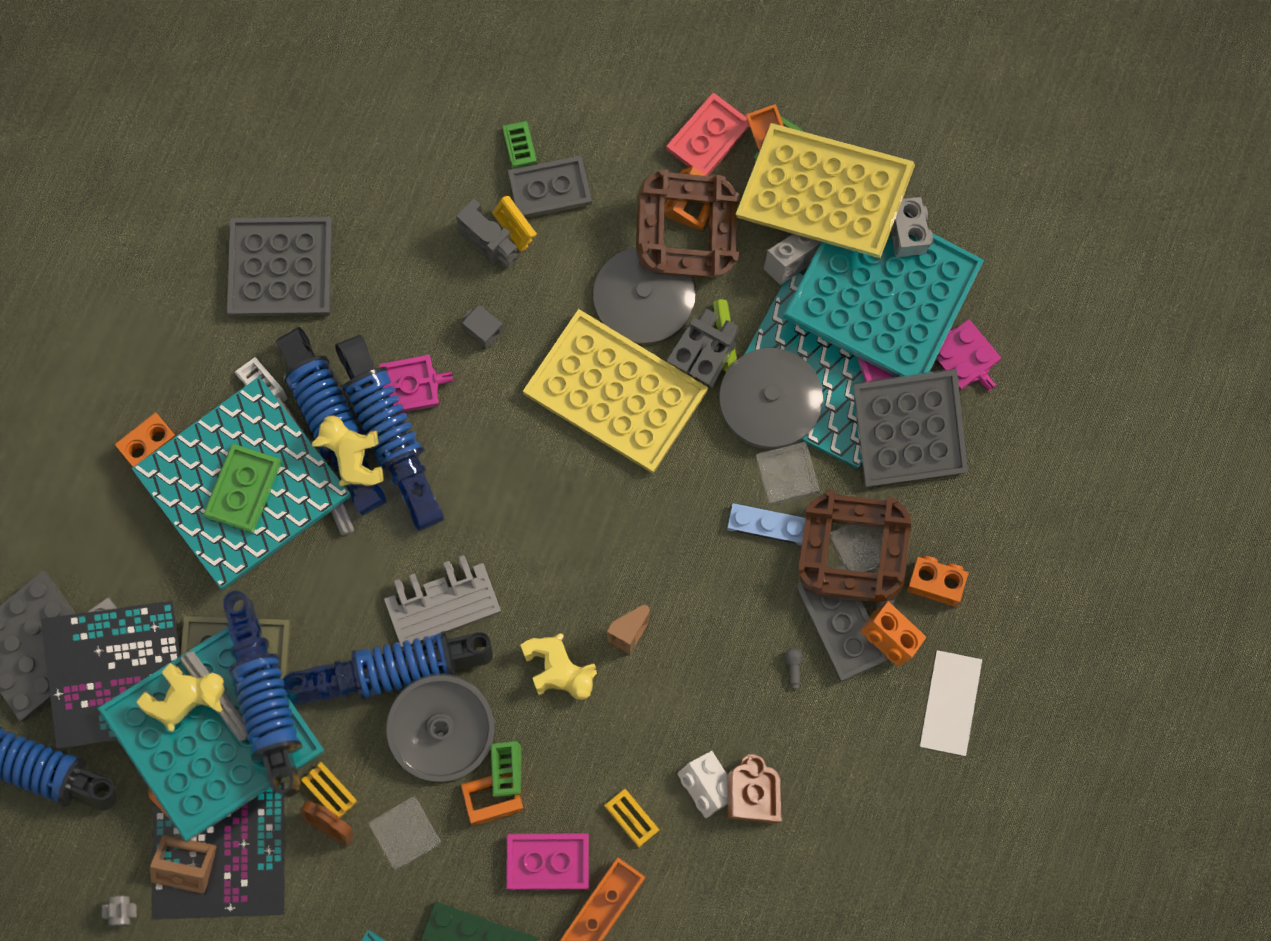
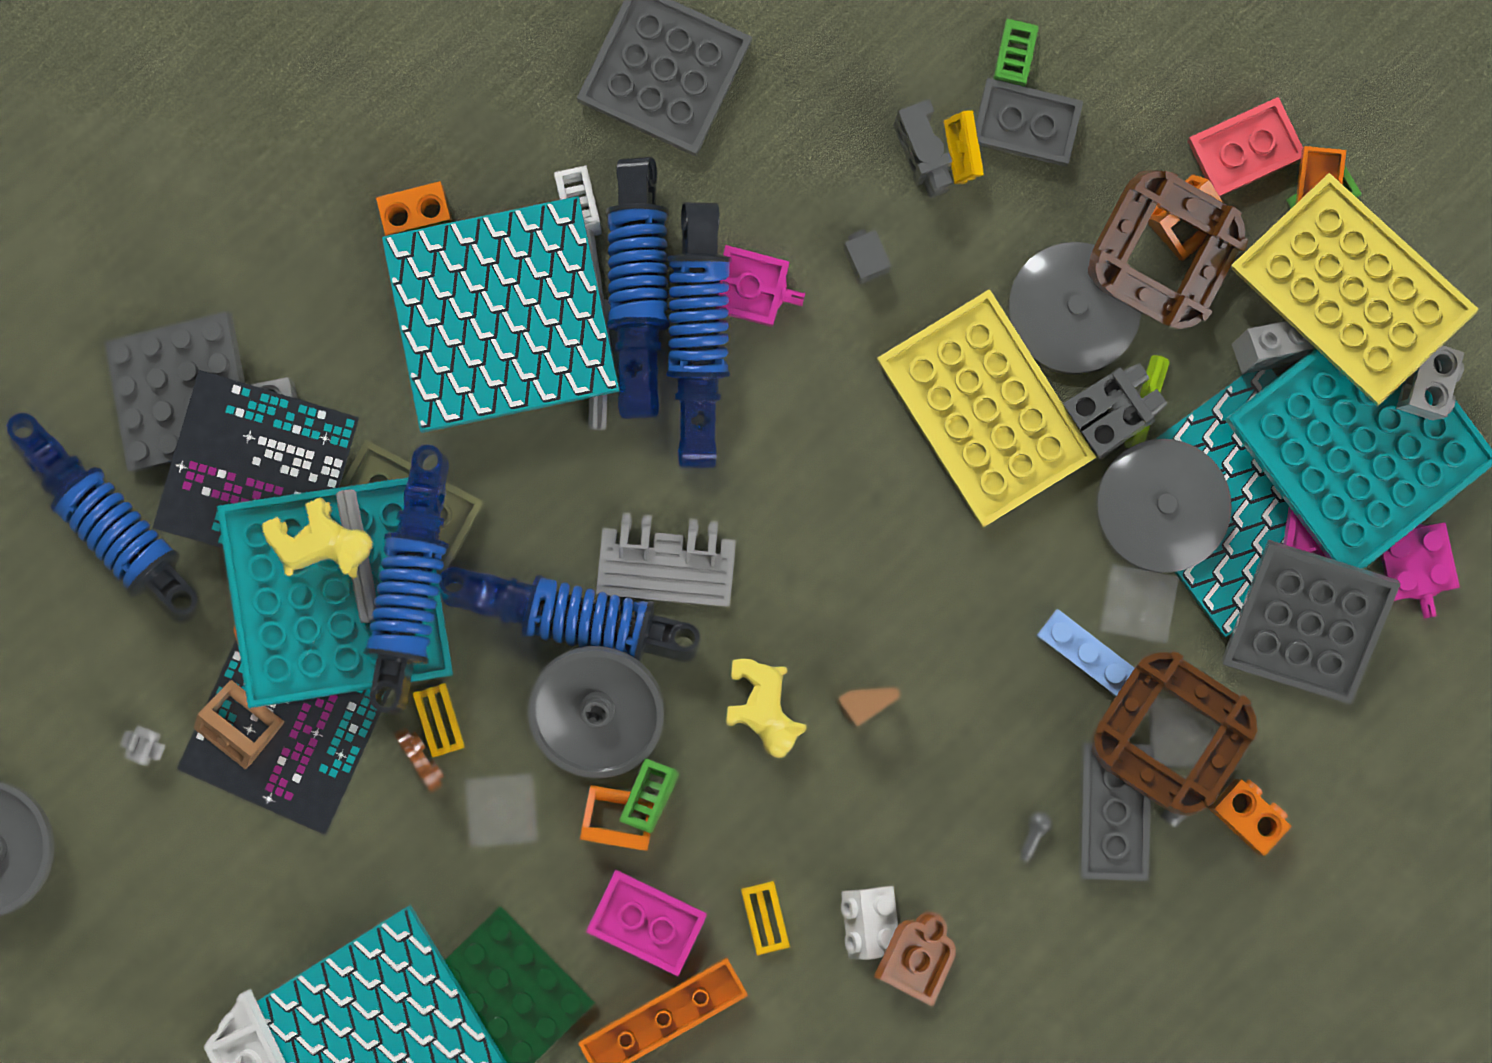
camera: 20 degrees right, 10 degrees up
(242, 488) = (498, 323): bright green tile -> none
(349, 449) = (640, 341): light yellow animal -> none
(893, 634) = (1167, 855): orange brick -> none
(951, 703) = (1195, 962): white sticker -> none

